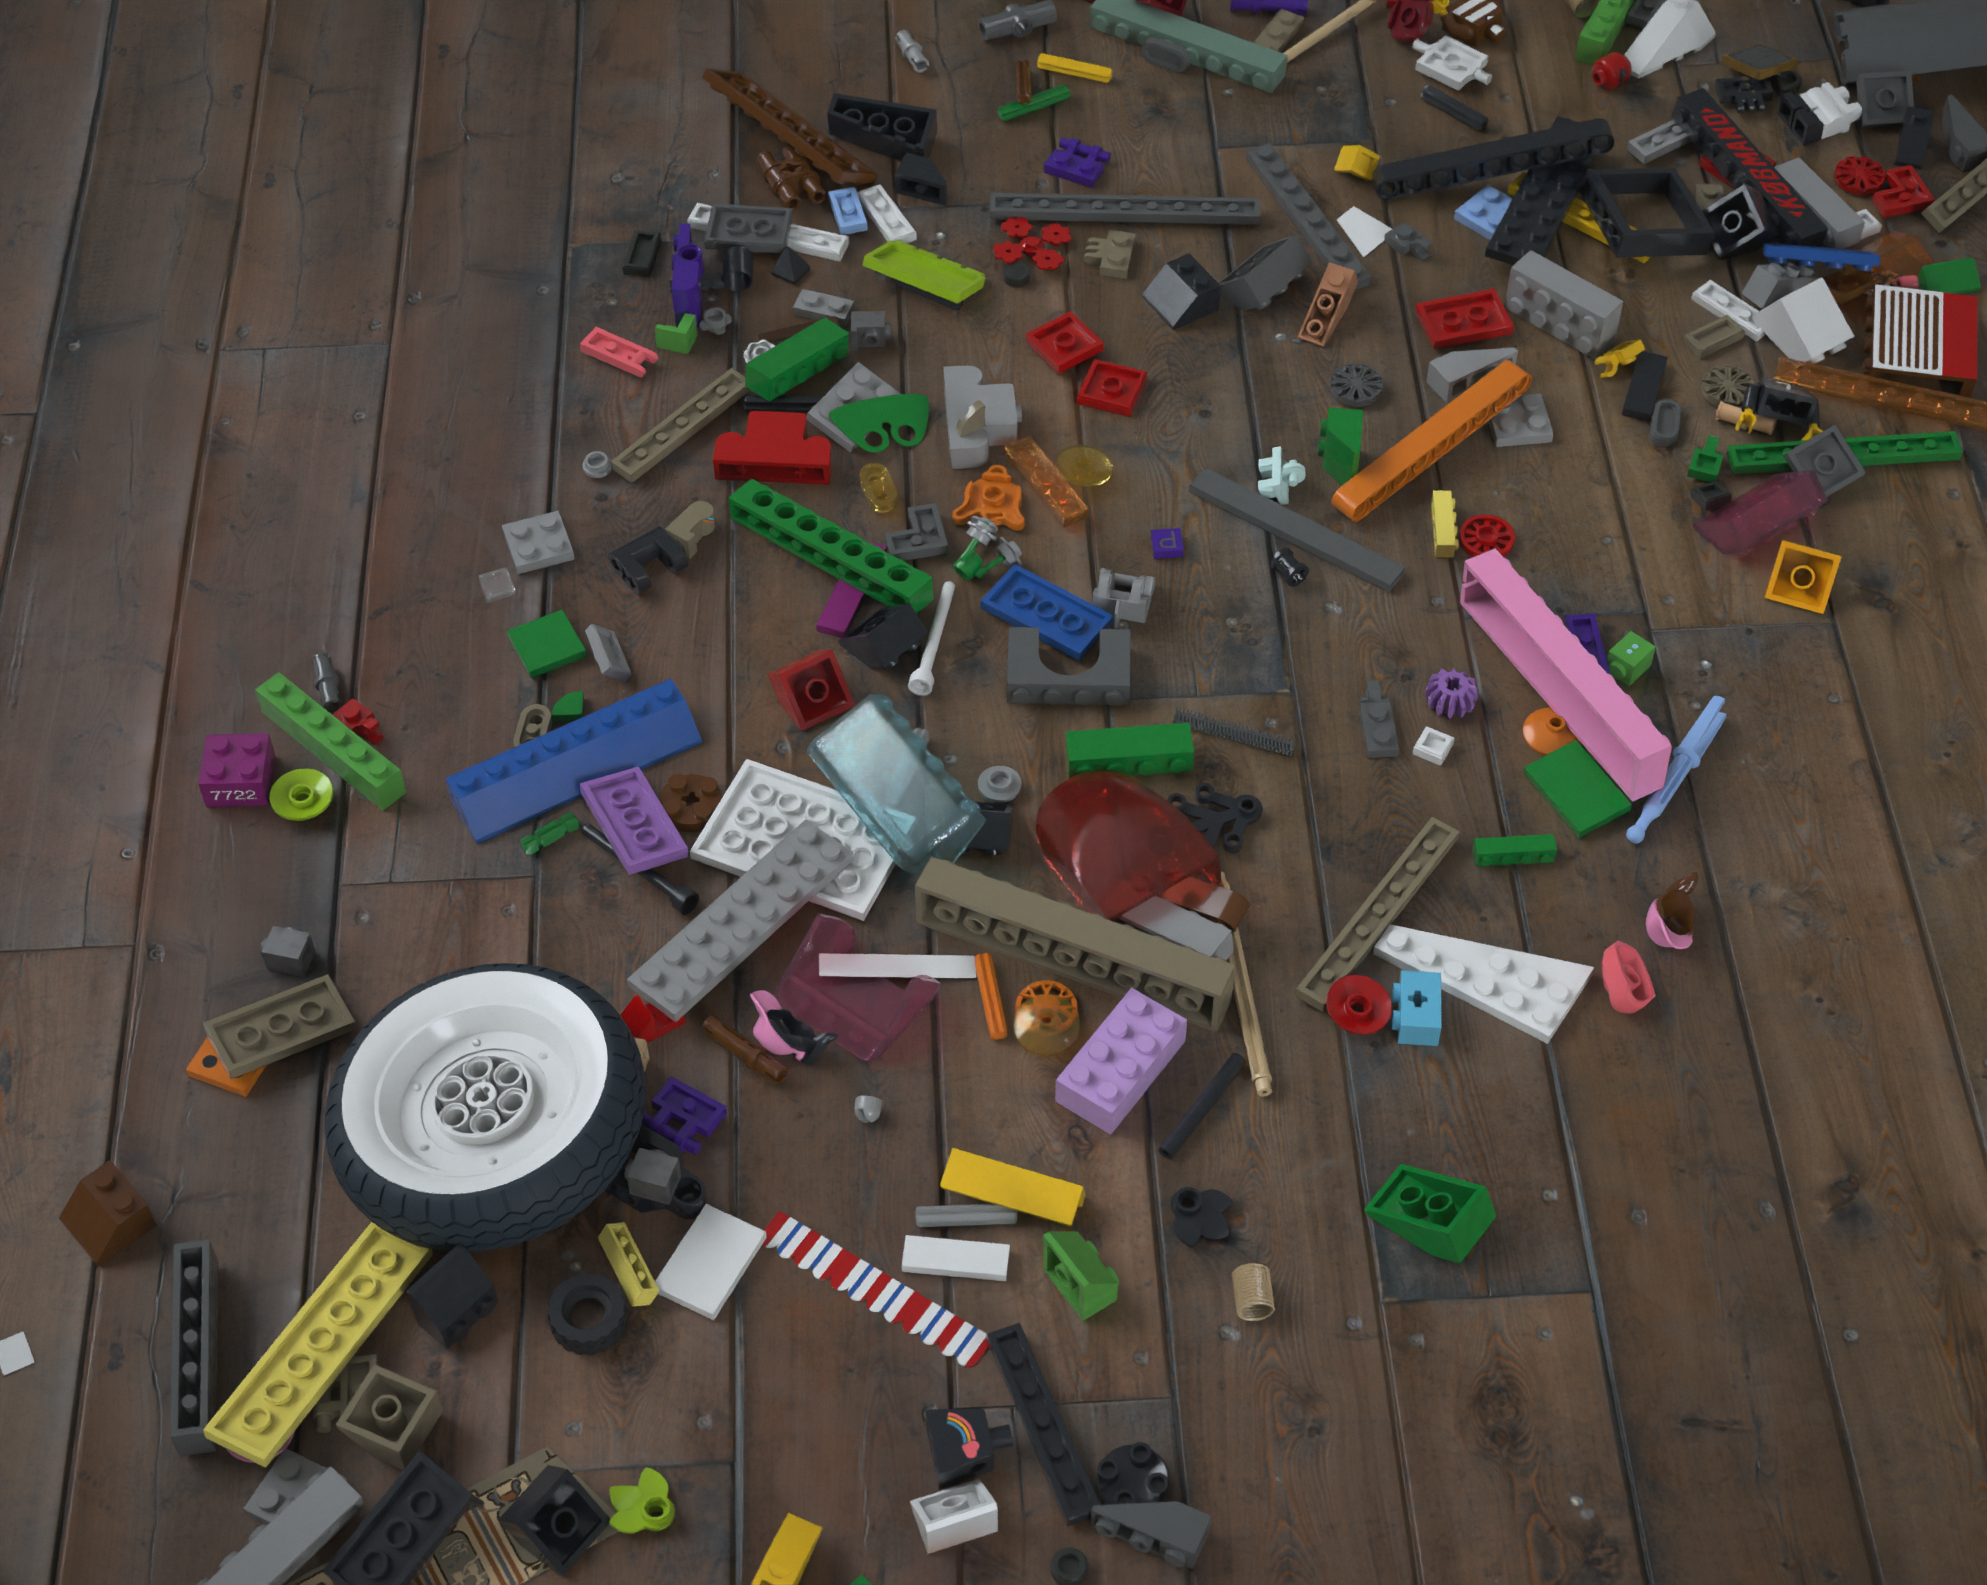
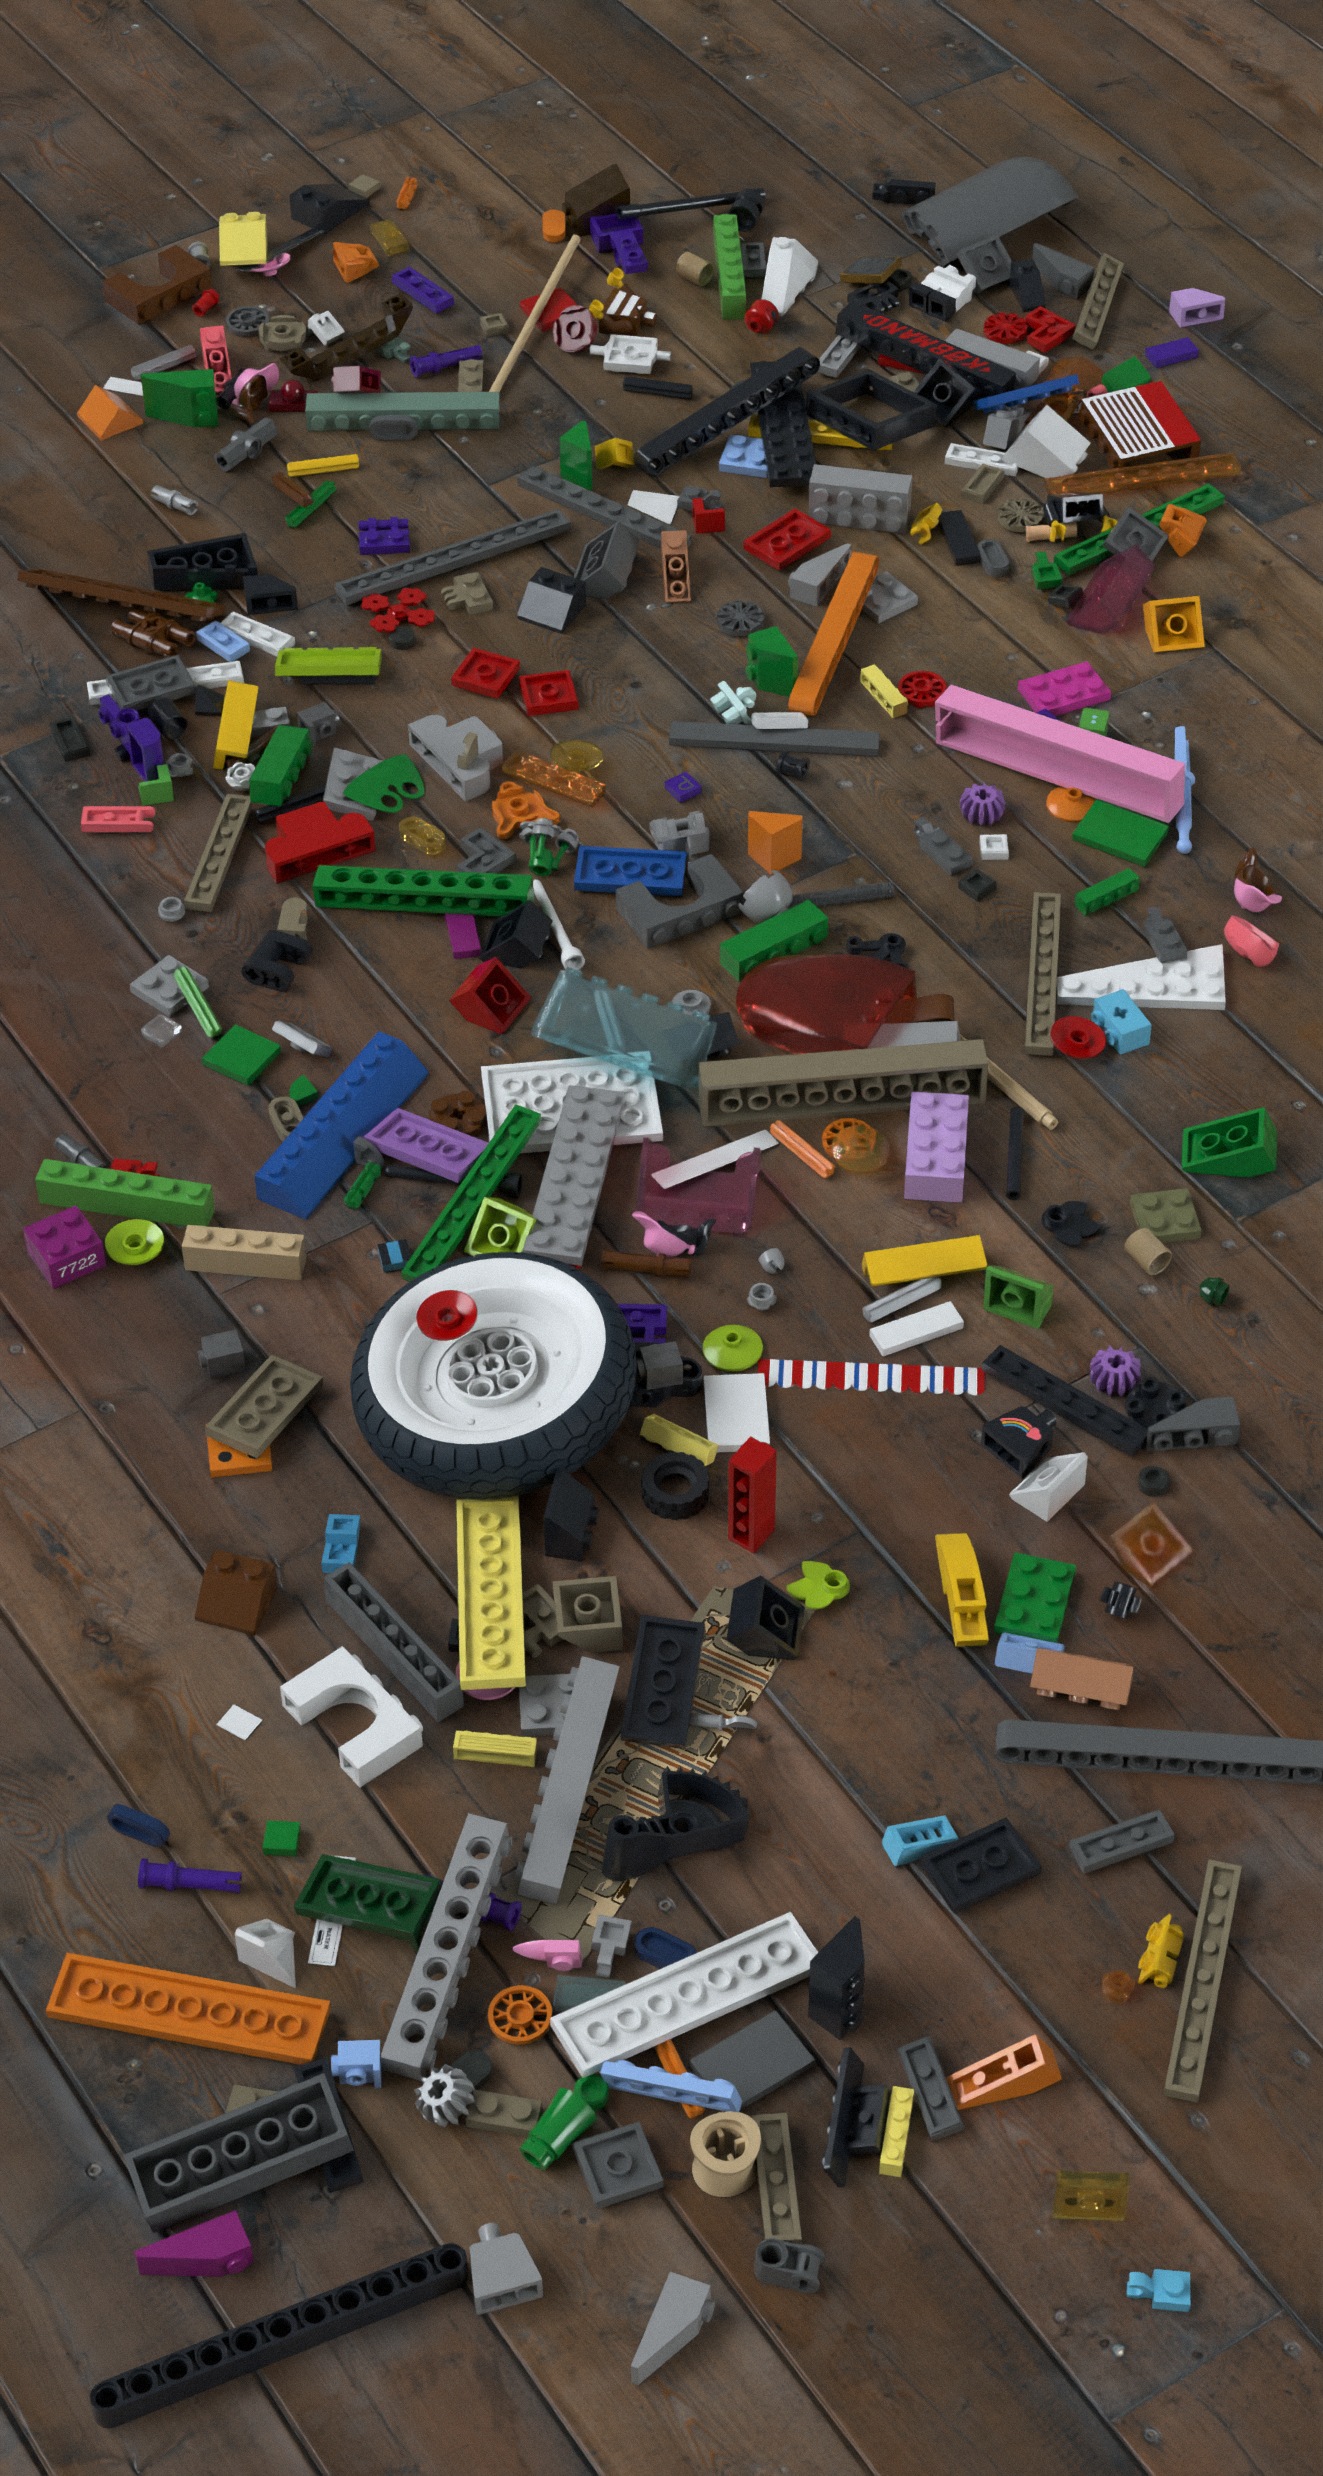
camera: 30 degrees left, 5 degrees down
(127, 1443) = (344, 1680): none -> white arch
(207, 1517) = (495, 1748): none -> light yellow piece
(245, 1207) = (341, 1541): none -> dark azure slope
(386, 853) = (244, 1252): none -> tan brick
(457, 1014) = (446, 1315): none -> red dish
(522, 923) = (394, 1255): none -> tile
(542, 574) = (197, 1002): none -> bright green axle
(575, 802) = (366, 1153): none -> dark grey tile
(621, 1372) = (752, 1494): none -> red brick
(628, 944) = (499, 1228): none -> lime slope
(630, 894) = (467, 1200): none -> green plate
(765, 1196) = (732, 1348): none -> lime dish
(791, 298) = (235, 722): none -> yellow panel
(828, 1136) = (761, 1296): none -> light grey plate
(867, 156) = (202, 593): none -> green plant
(1117, 1404) = (1115, 1371): none -> medium lavender gear
(1150, 703) = (767, 898): none -> light grey cylinder
(1206, 642) = (774, 839): none -> orange slope
(1293, 1374) = (1214, 1290): none -> dark green plate
(1307, 1257) = (1166, 1215): none -> olive plate
(1311, 512) = (779, 720): none -> white tile
(1314, 149) = (576, 456): none -> green slope
(1385, 781) = (977, 885): none -> pearl dark grey tile
(1398, 267) = (707, 520): none -> red panel
(1535, 930) = (1163, 936): none -> dark grey hinge
(1635, 600) = (1064, 689): none -> dark pink plate
(1889, 472) = (1182, 527): none -> orange piece

